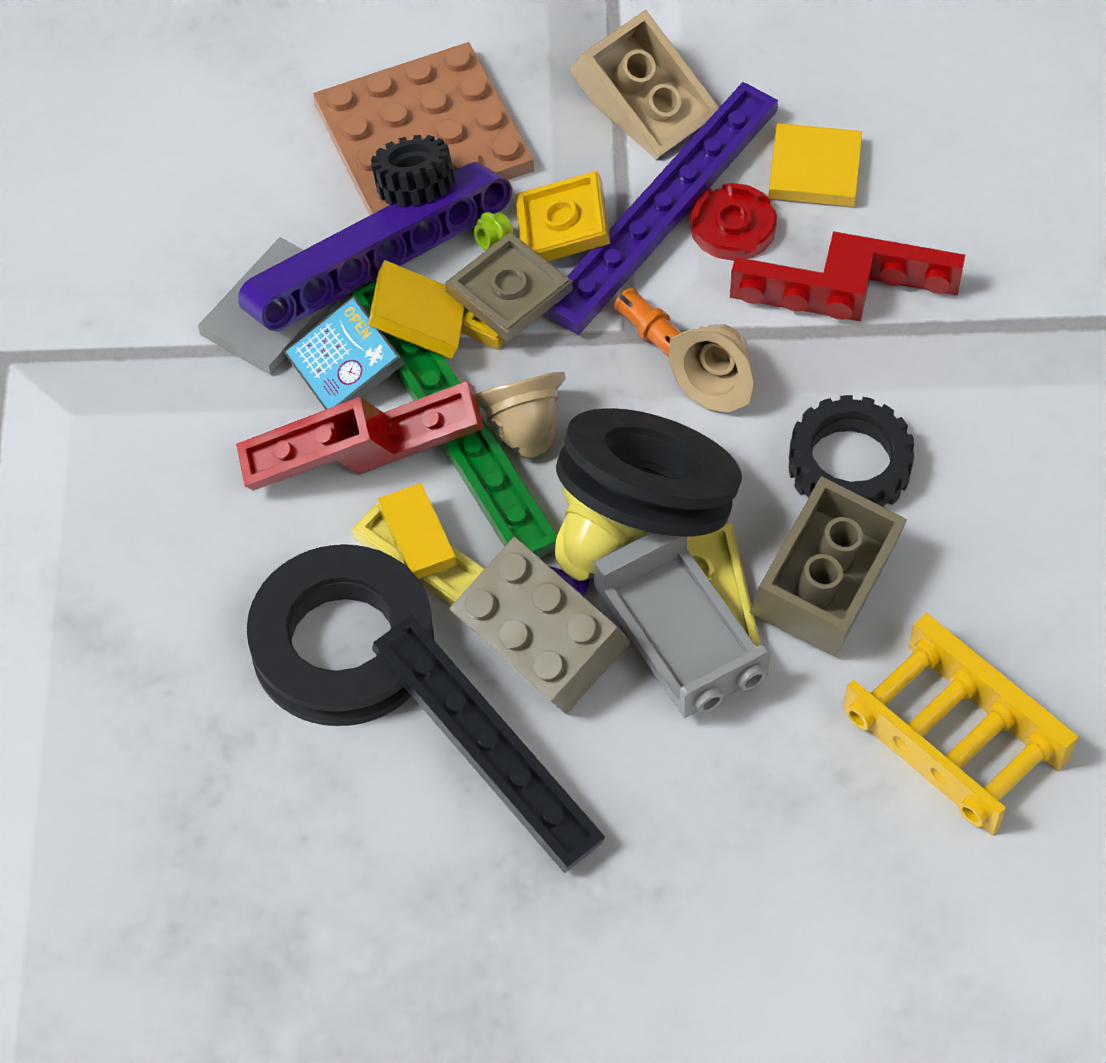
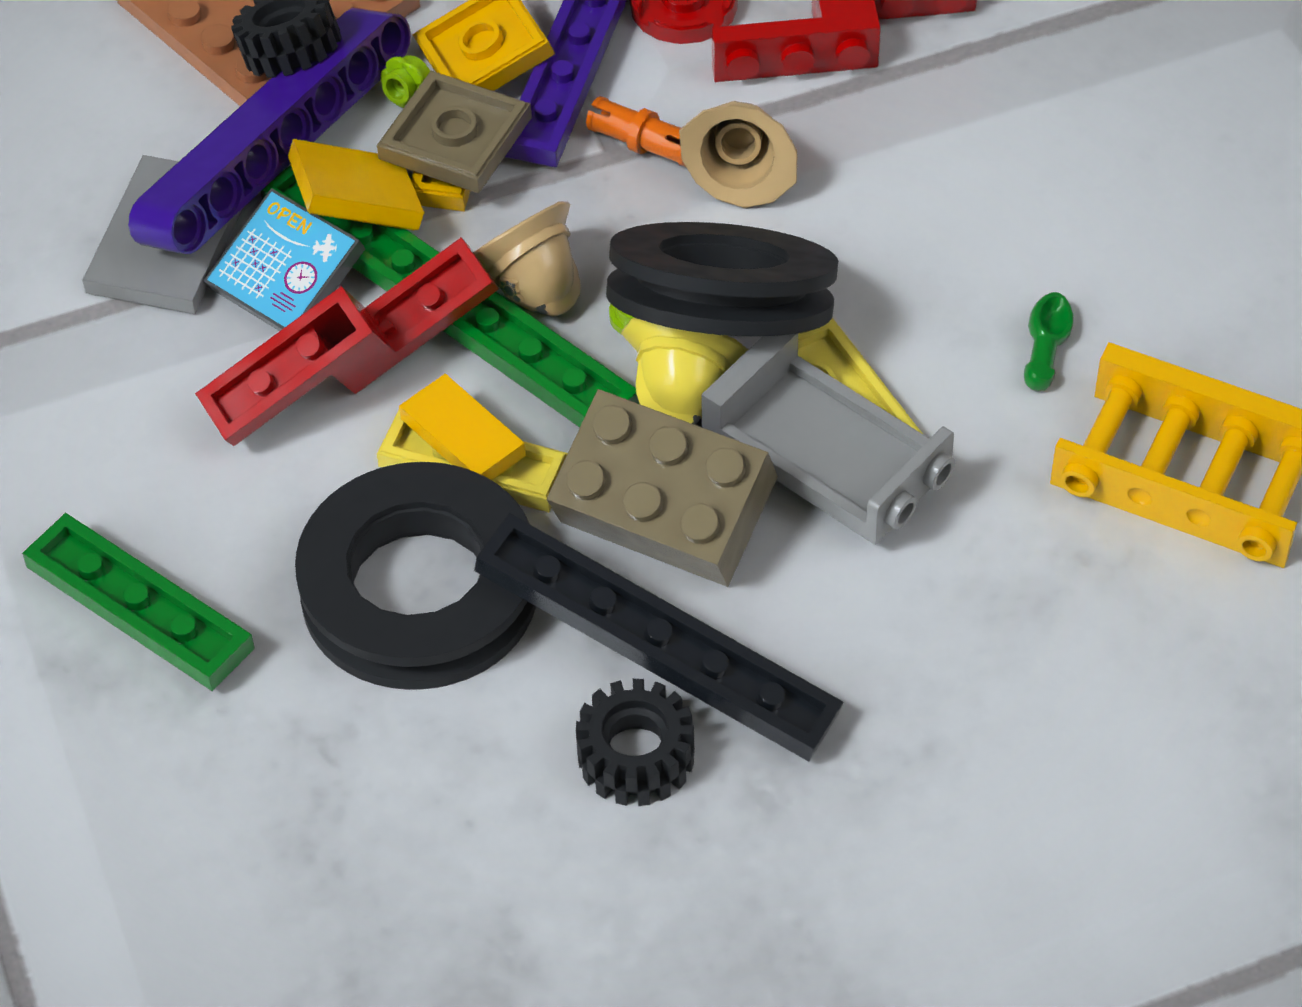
camera: 20 degrees left, 5 degrees down
(138, 592) = (139, 601): none -> green plate
(435, 791) = (639, 773): none -> black tyre
(827, 566) = (973, 327): dark tan brick -> none
(860, 417) = (936, 164): black tyre -> none
(895, 582) = (1050, 327): none -> green piece

